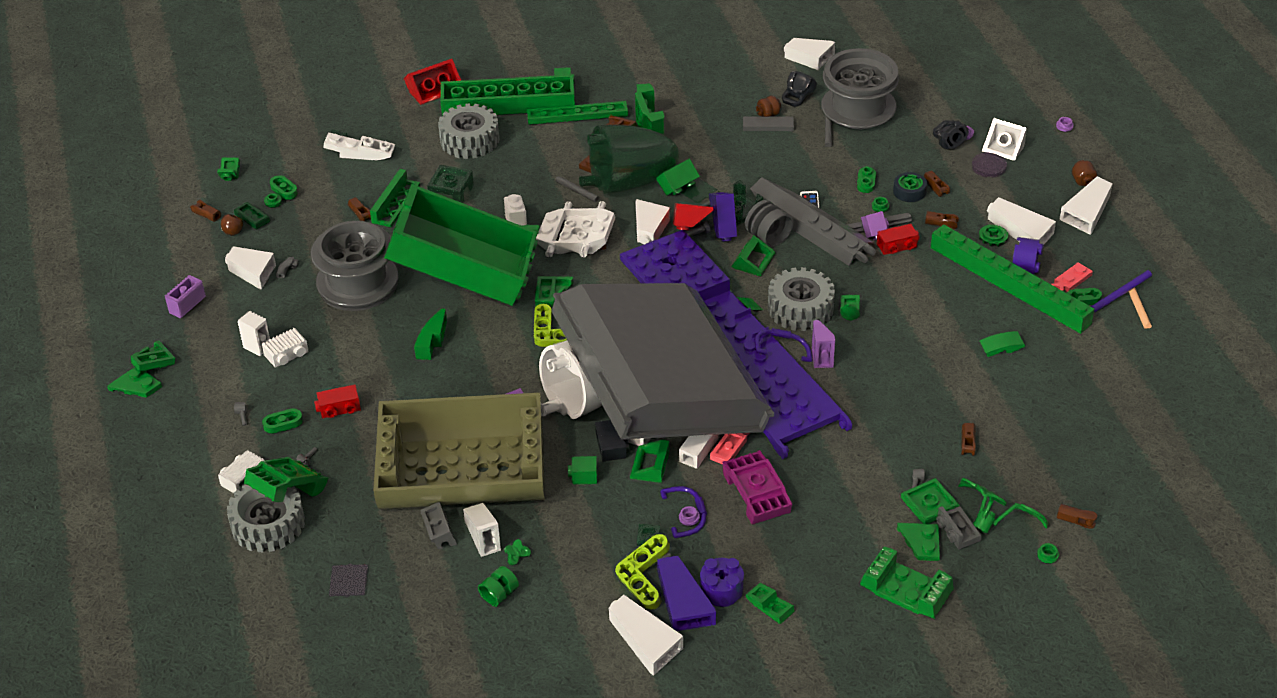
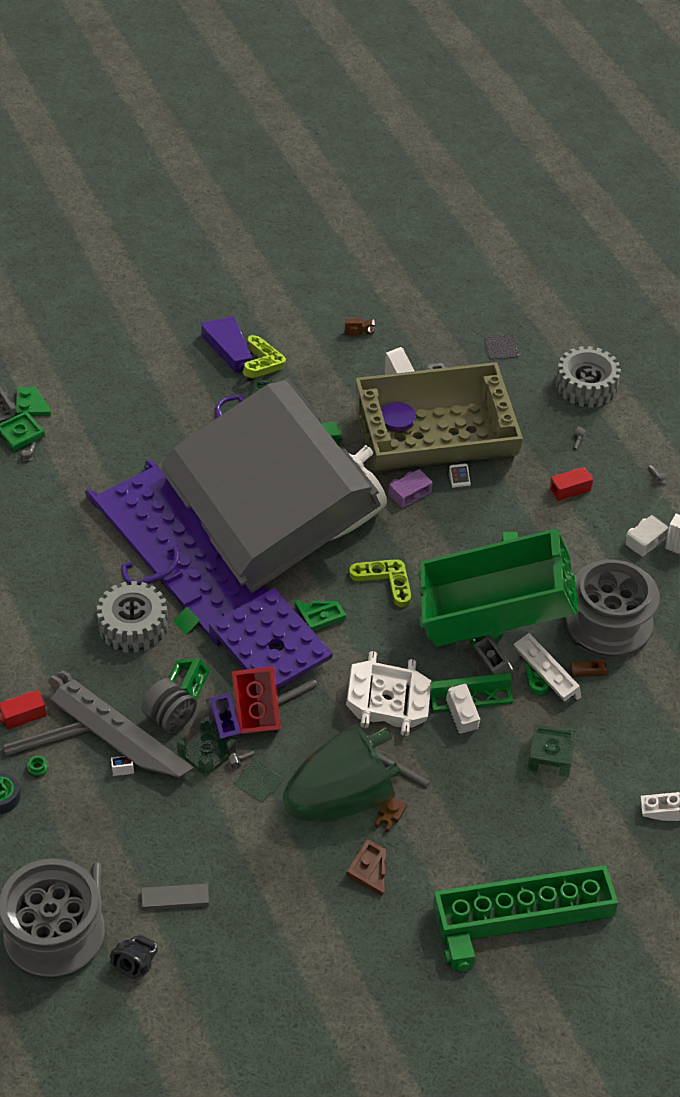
camera: 170 degrees right, 5 degrees up
(234, 475) = (628, 415): white brick -> none
(276, 475) = (580, 390): green plate -> none
(282, 421) = (612, 467): green plate -> none
(359, 209) = (646, 718): reddish brown bar -> none
(387, 199) = (618, 733): green fence -> none
(426, 83) = (635, 935): red slope -> none
(468, 131) = (570, 846): light grey wheel -> none
(498, 585) = (377, 338): green wheel -> none
(501, 471) = (398, 416): none -> dark purple tile
(515, 551) = (370, 371): green piece -> none
(518, 608) = (356, 326): none -> reddish brown plate
(548, 286) = (399, 622): green wing -> none
(577, 112) = (417, 895): green plate -> none
(645, 109) = (325, 851): green plate -> none
(645, 634) = (255, 315): white slope -> none
(650, 220) = (306, 716): white slope -> none
(677, 177) = (276, 777): green brick -> none
(689, 516) = (227, 405): medium lavender plate -> none
(722, 581) = (197, 351): dark purple brick -> none
(758, 486) = (169, 422): magenta plate -> none
(768, 106) = (175, 916): reddish brown piece -> none
(768, 602) = (160, 349): green slope -> none
(809, 51) = (118, 1037): white slope -> none
(822, 346) = (110, 556): medium lavender tile -> none
(850, 307) = (81, 617): green plate -> none
(866, 179) = (53, 806): green plate -> none
(874, 223) = (46, 720): medium lavender brick -> none
(906, 586) = (45, 364): green plate -> none

